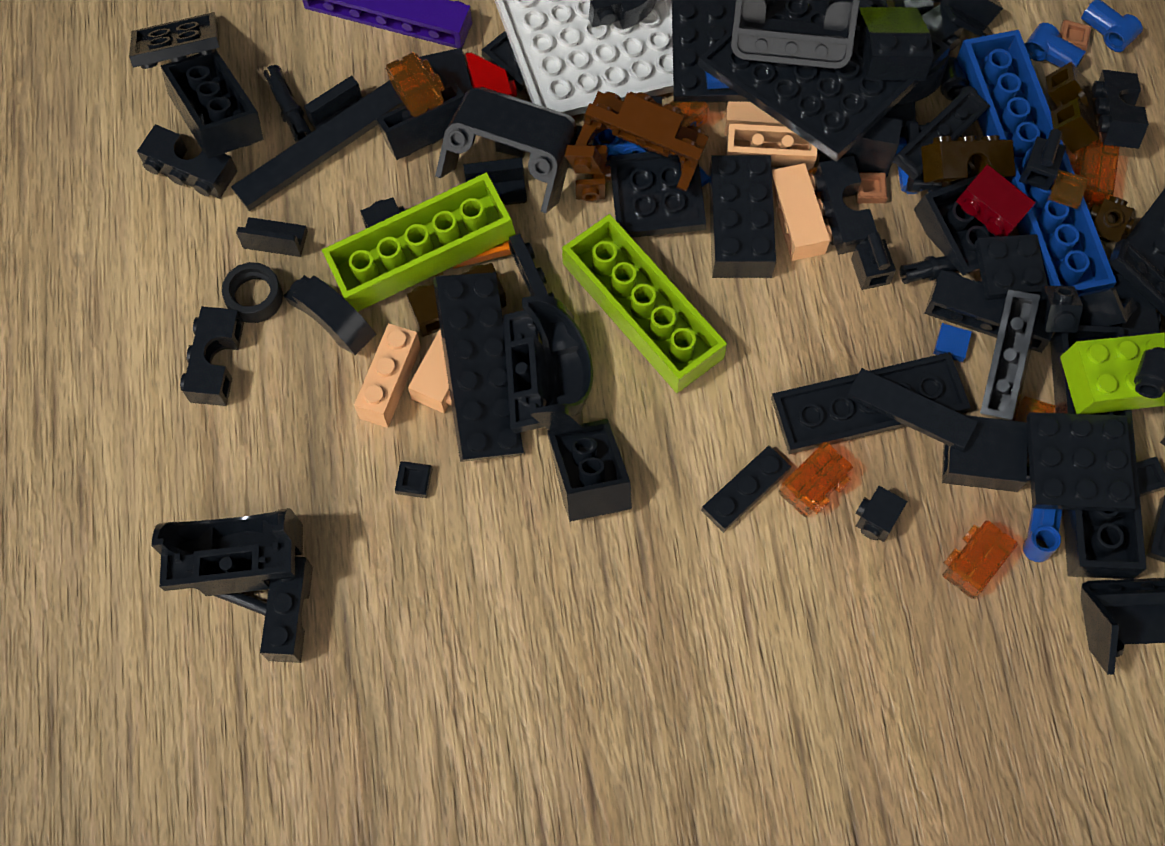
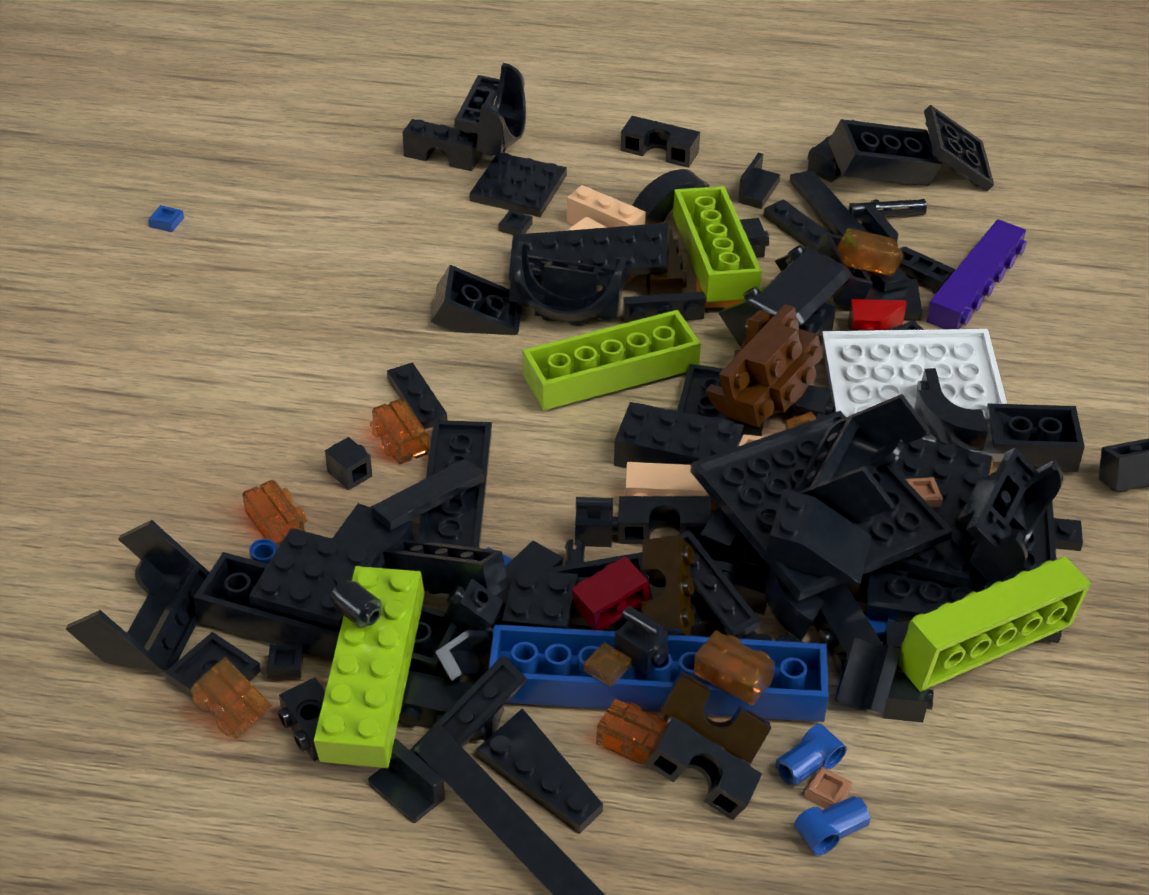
camera: 105 degrees right, 25 degrees down
(247, 272) = (711, 156): black tyre -> none
(336, 185) = (795, 223): none -> black plate
(337, 497) = (518, 184): none -> black plate
(383, 54) = (925, 268): none -> black plate
(1035, 91) = (734, 667): none -> clear orange brick
(1121, 217) = (569, 719): dark brown brick -> none

